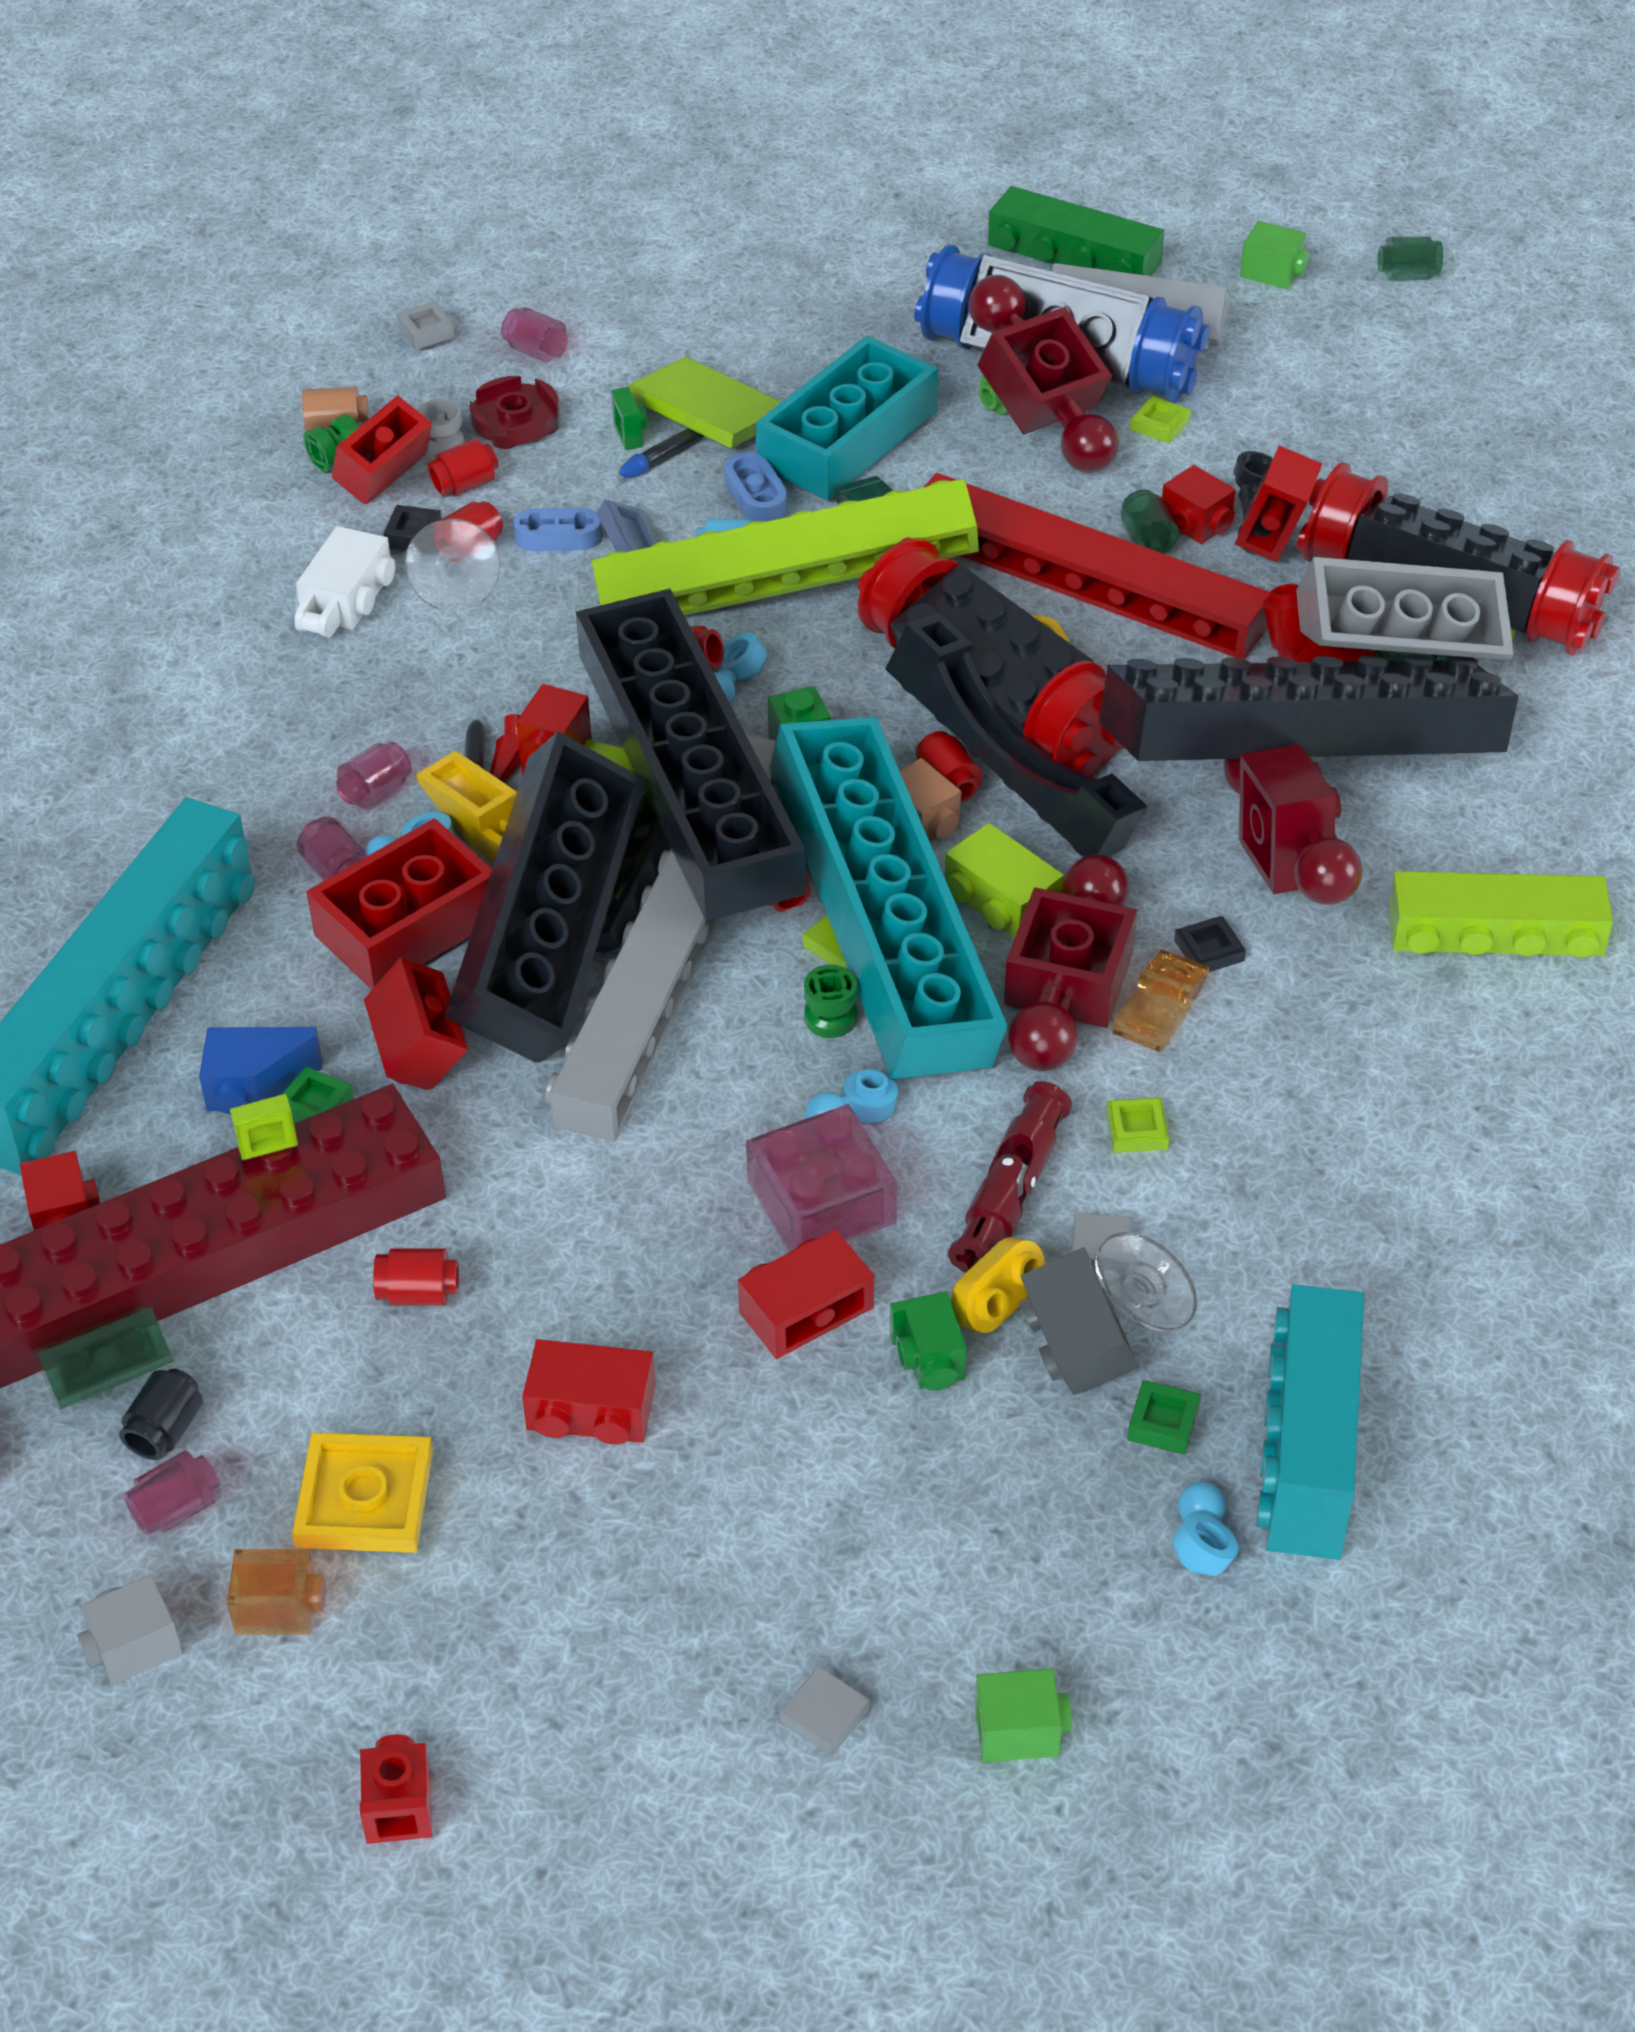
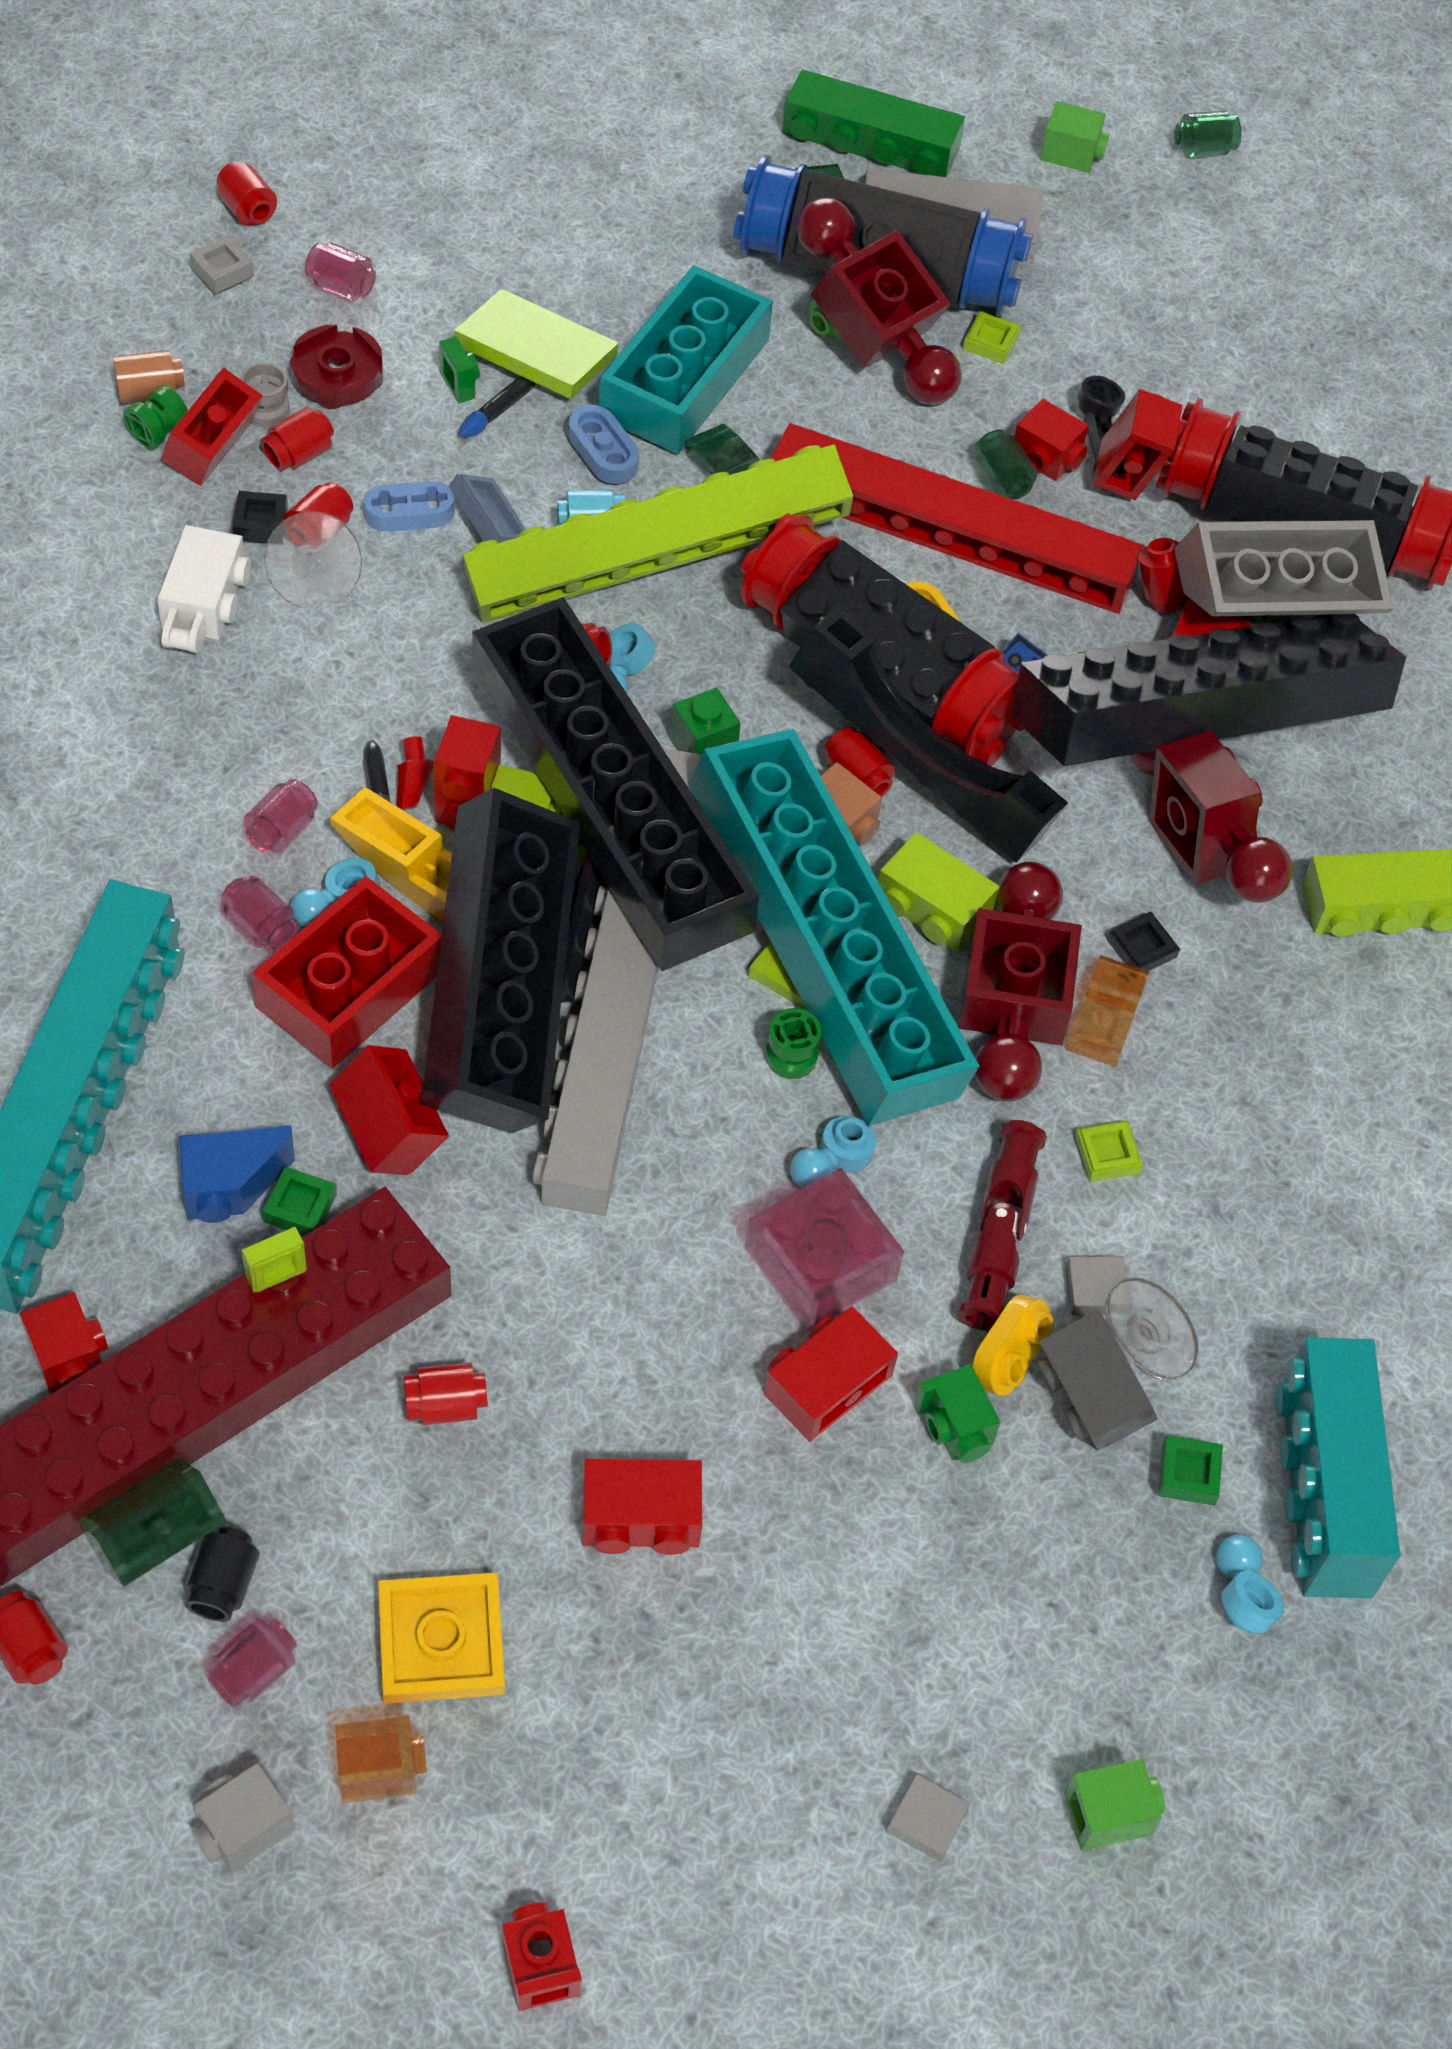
camera: 15 degrees left, 10 degrees up
(461, 270) = (246, 193): none -> red brick

